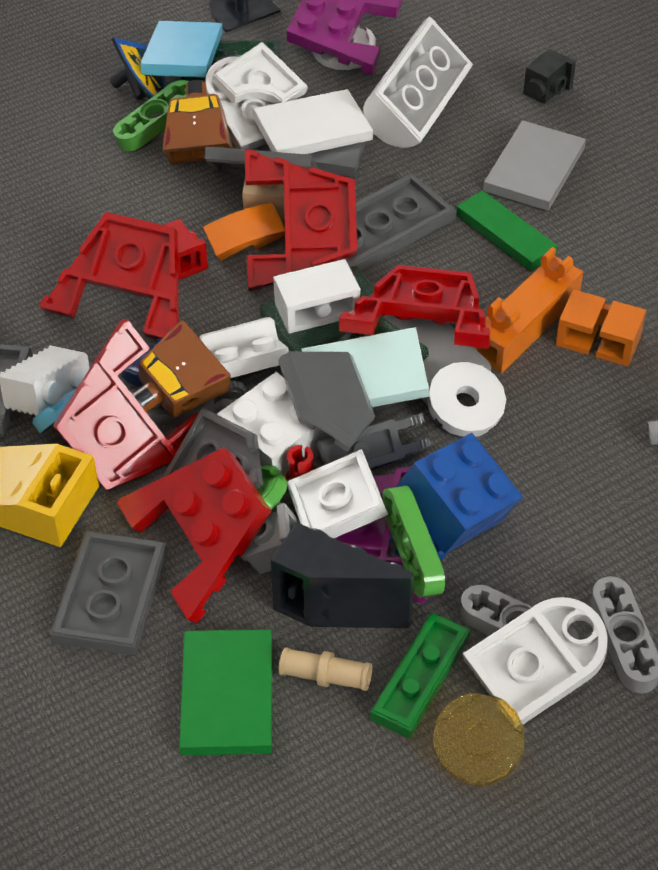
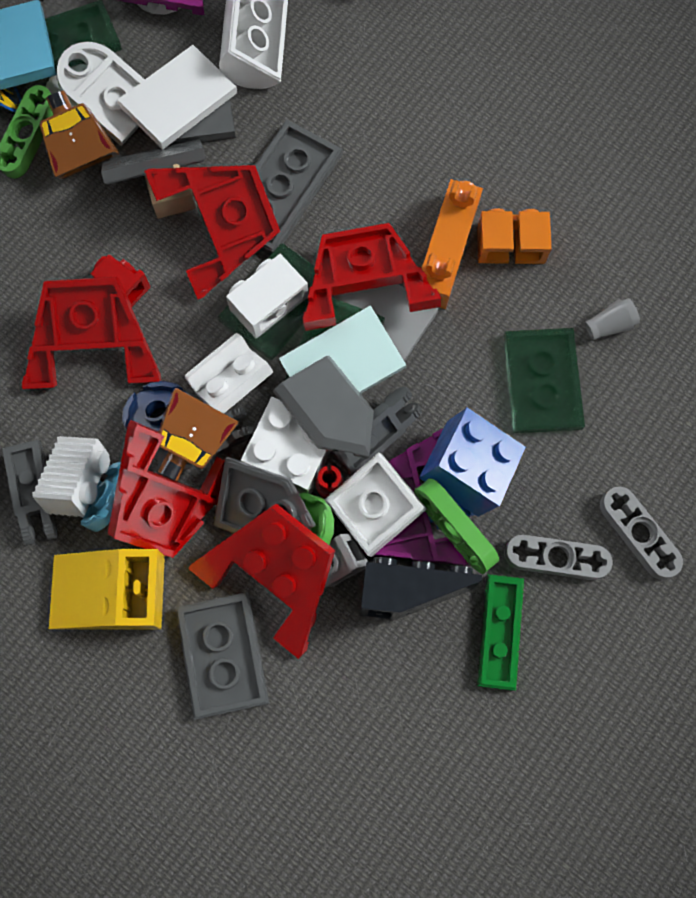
camera: 25 degrees left, 25 degrees up
(226, 692) = (359, 711): green tile -> none
(244, 228) = (168, 238): orange slope -> none
(259, 76) = (108, 60): white tile -> none
(325, 669) = (429, 661): tan pin -> none
(472, 380) = (449, 343): white tile -> none
(479, 739) = (570, 677): clear yellow tile -> none
(505, 229) = (392, 154): green tile -> none
(534, 165) = (388, 71): light grey tile -> none
(536, 659) = (587, 591): white tile -> none
(578, 464) = (543, 380): none -> clear green tile

